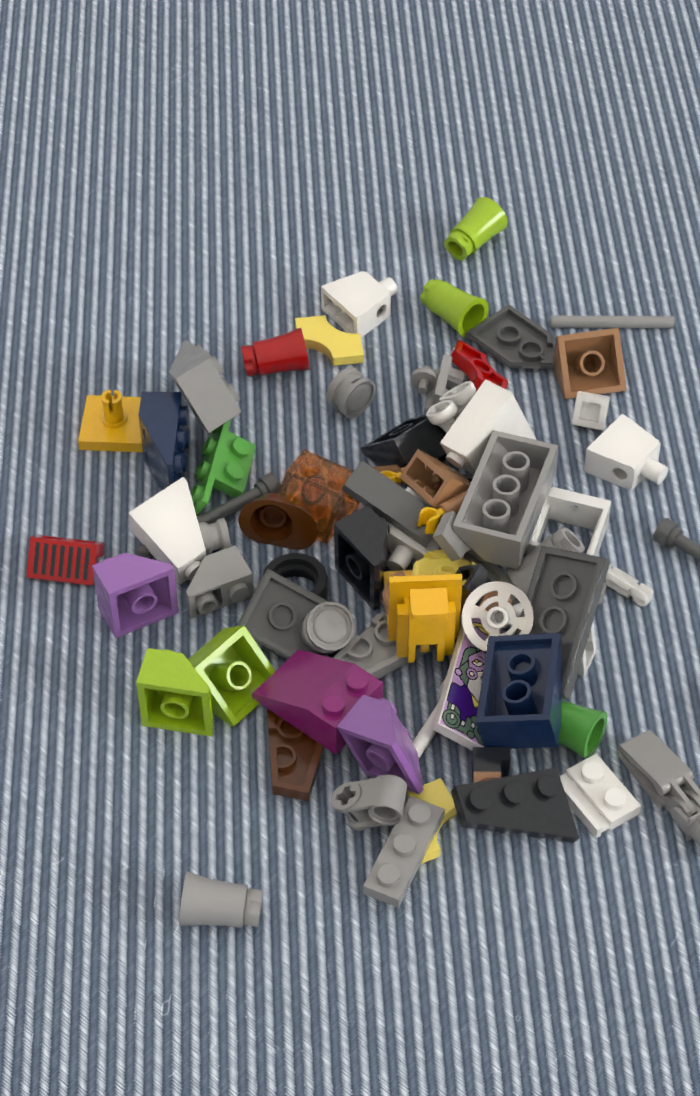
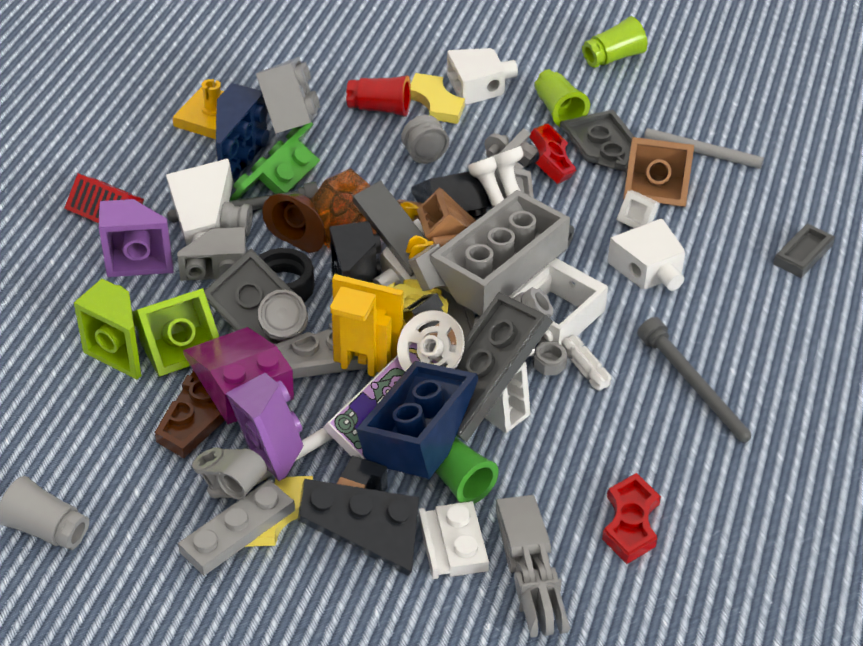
camera: 20 degrees right, 5 degrees down
(487, 411) = (520, 171): white arch -> none

